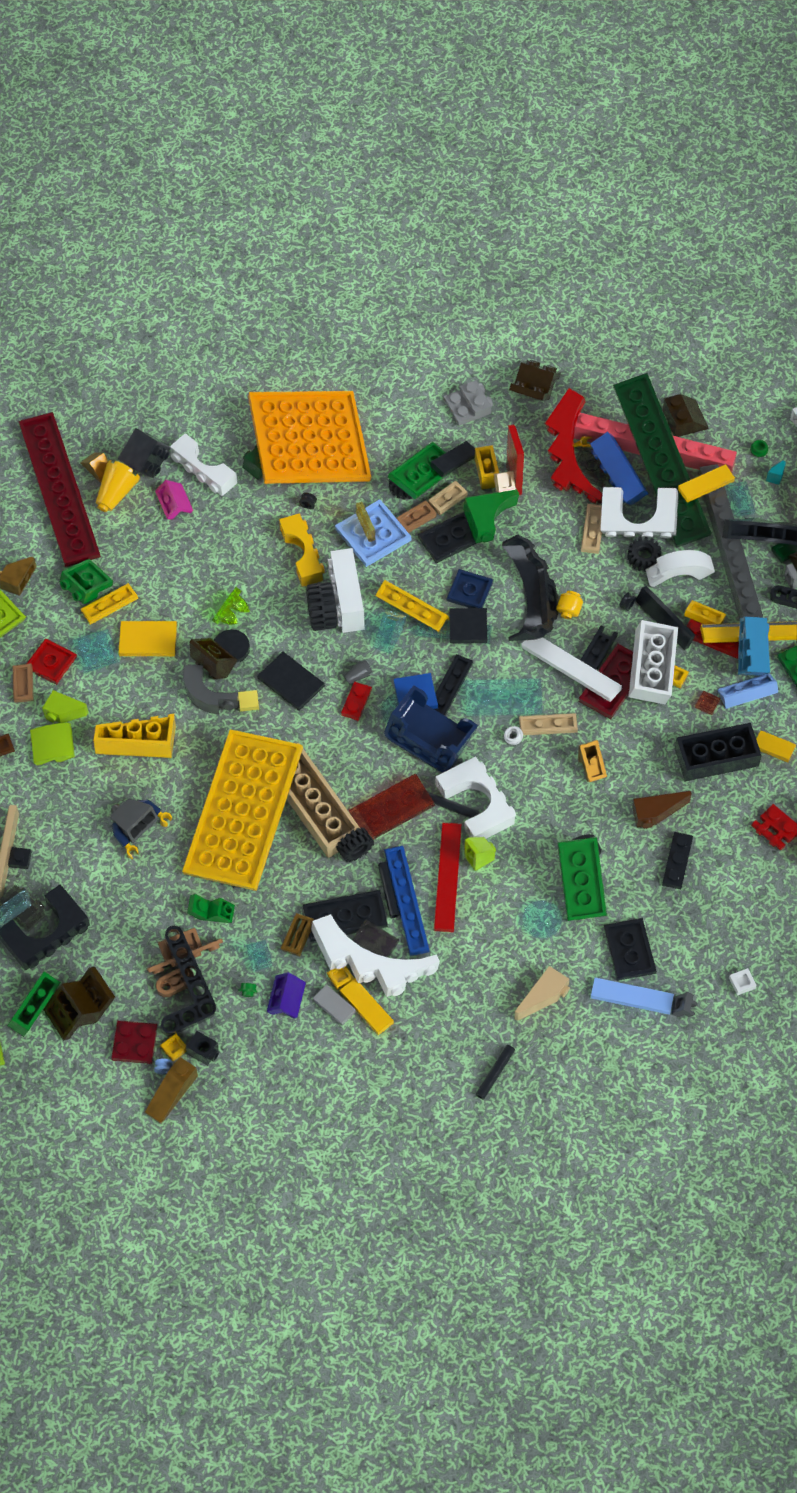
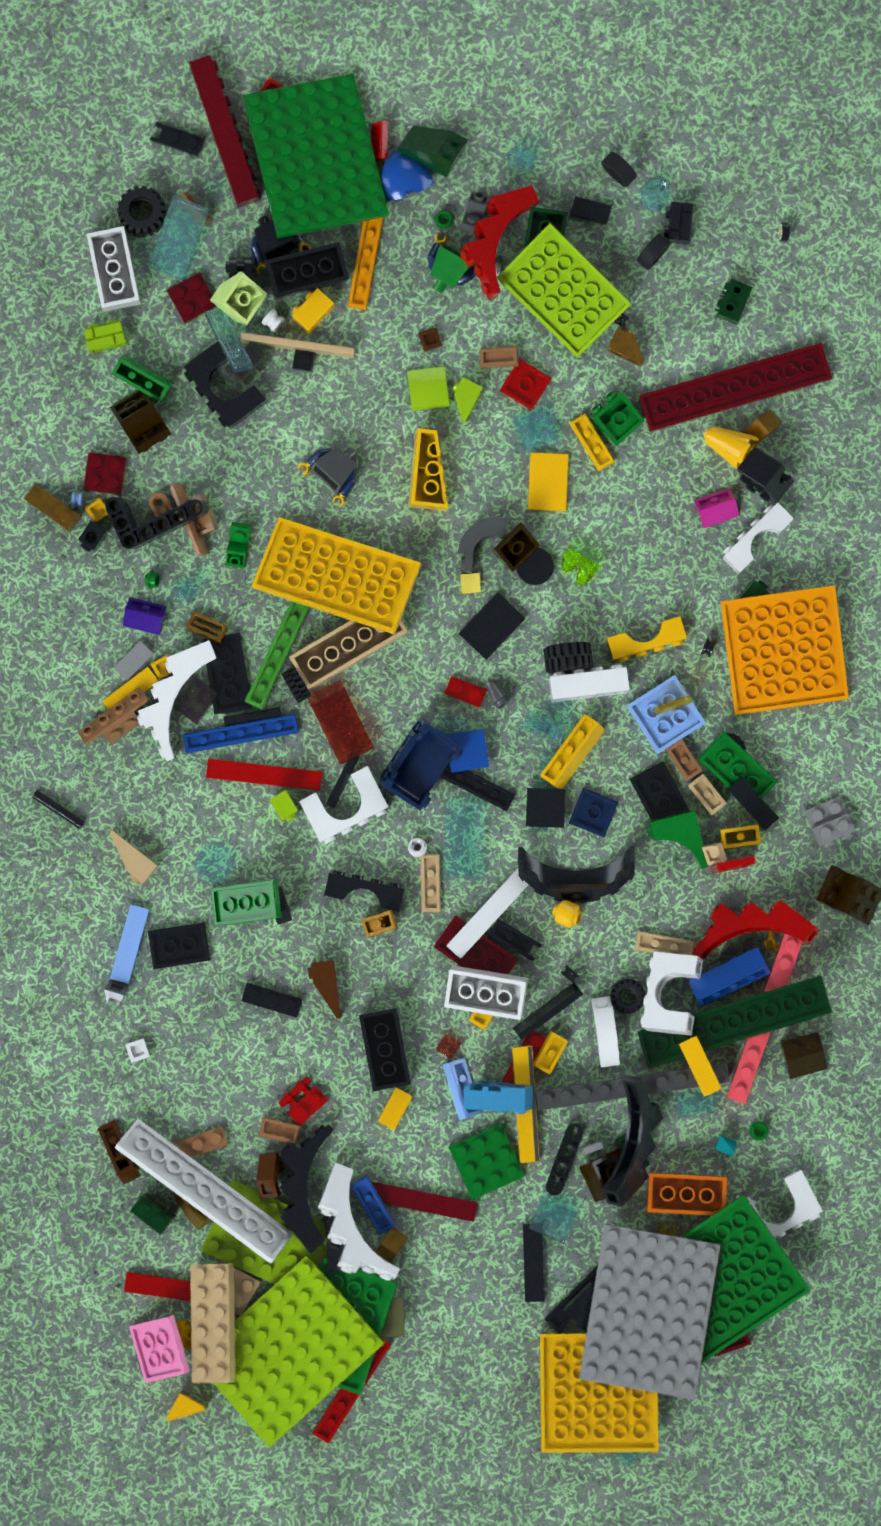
camera: 90 degrees right, 25 degrees up
(324, 868) = (276, 654): none -> bright green tile
(397, 1016) = (116, 720): none -> medium nougat bracket
(558, 799) = (339, 886): none -> black arch

